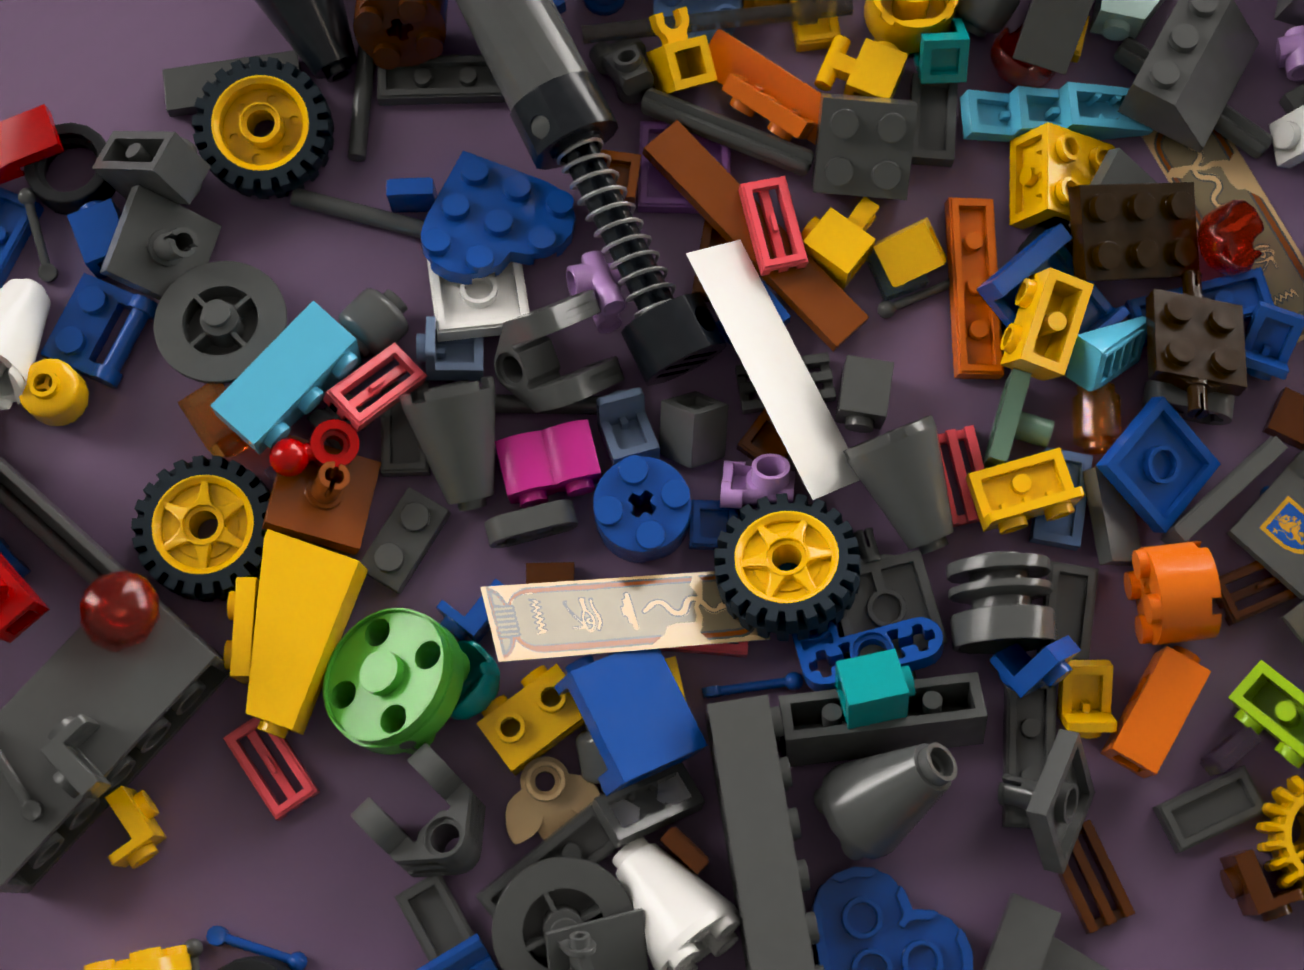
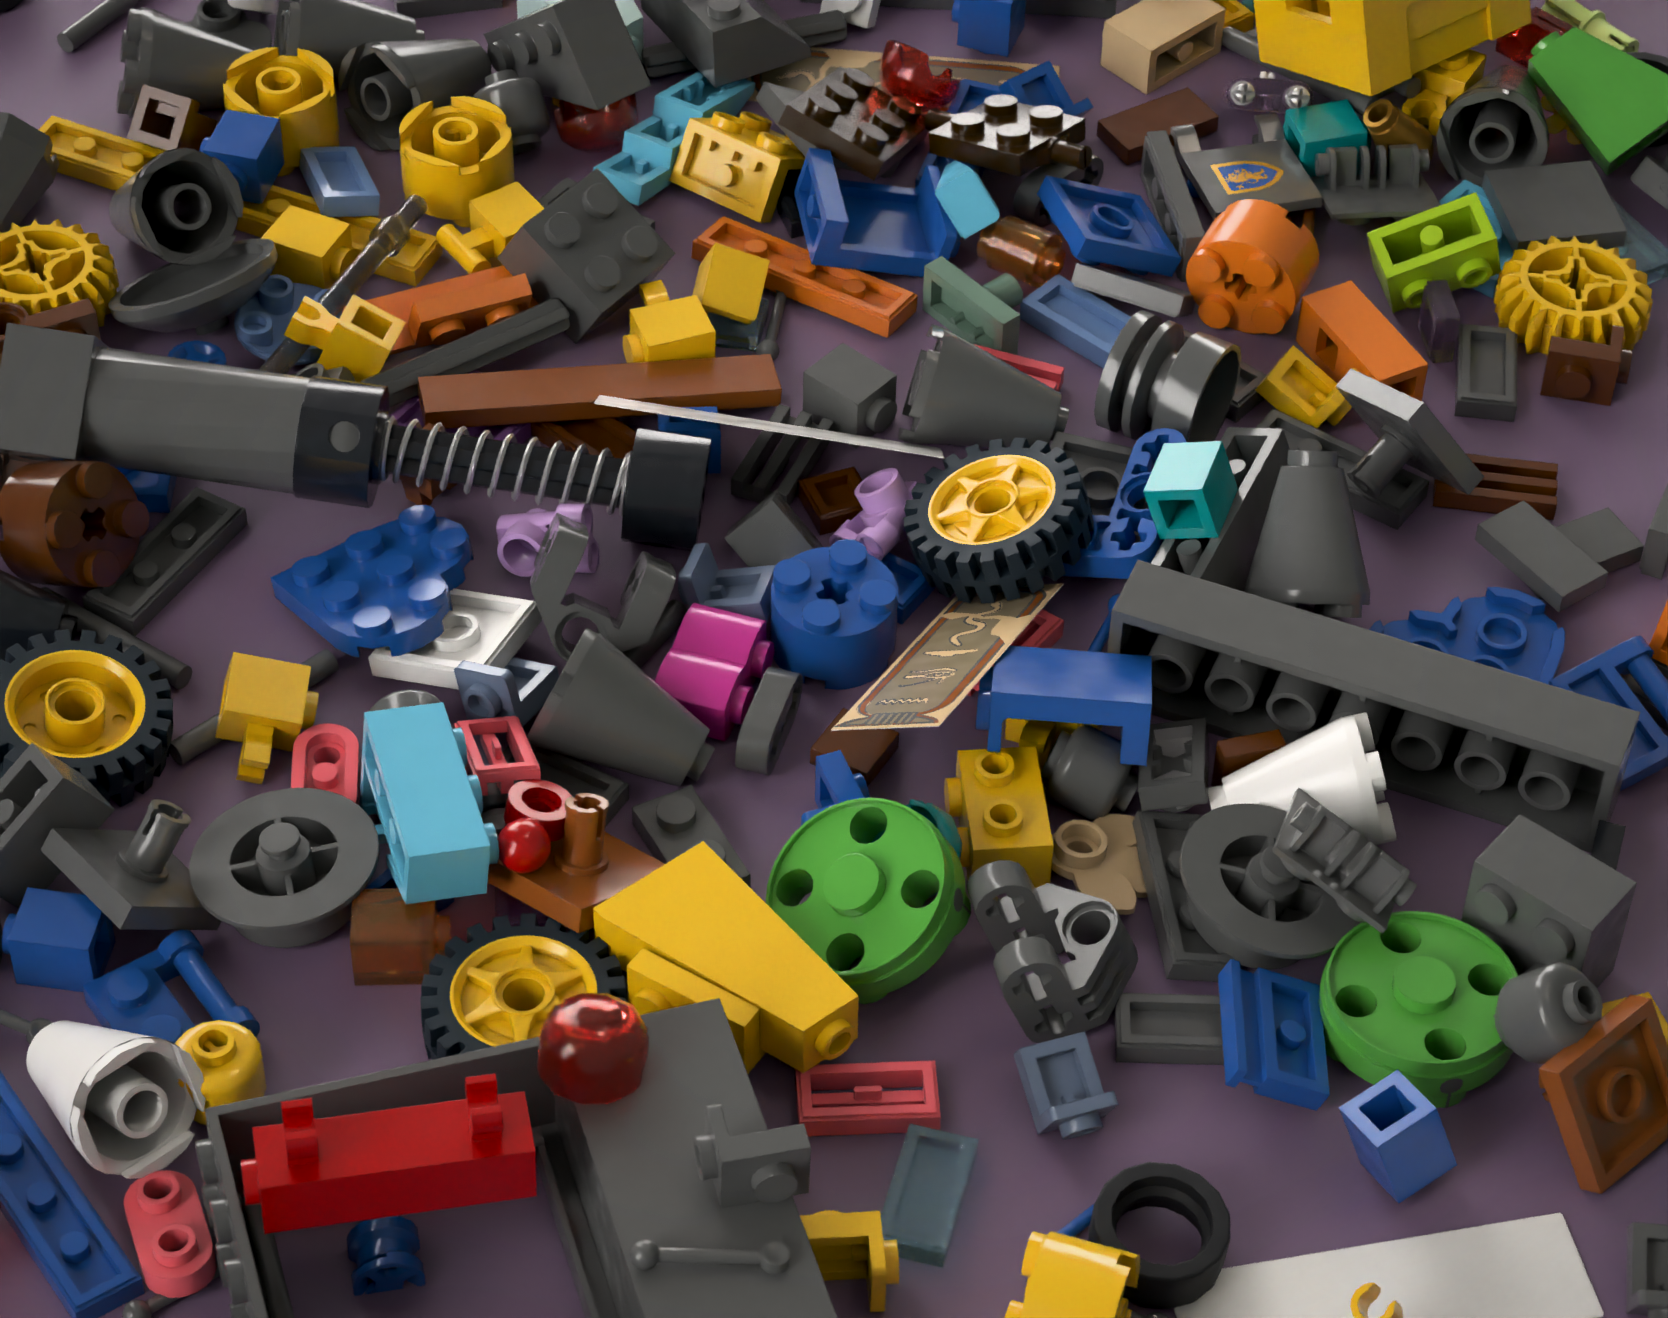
camera: 60 degrees left, 30 degrees down
(218, 843) = (928, 1193): none -> clear light blue tile
(318, 287) = (327, 760): none -> coral plate
(334, 885) = (1063, 1086): none -> sand blue bracket
(339, 224) = (265, 709): none -> yellow brick
(411, 194) = (287, 631): blue tile -> none
(781, 261) = (608, 362): coral tile -> none
(944, 55) = (544, 159): teal panel -> none
(1023, 490) = (1061, 322): yellow bracket -> none
(1028, 674) = (1262, 378): blue bracket -> none
(1045, 323) = (904, 208): yellow brick -> none

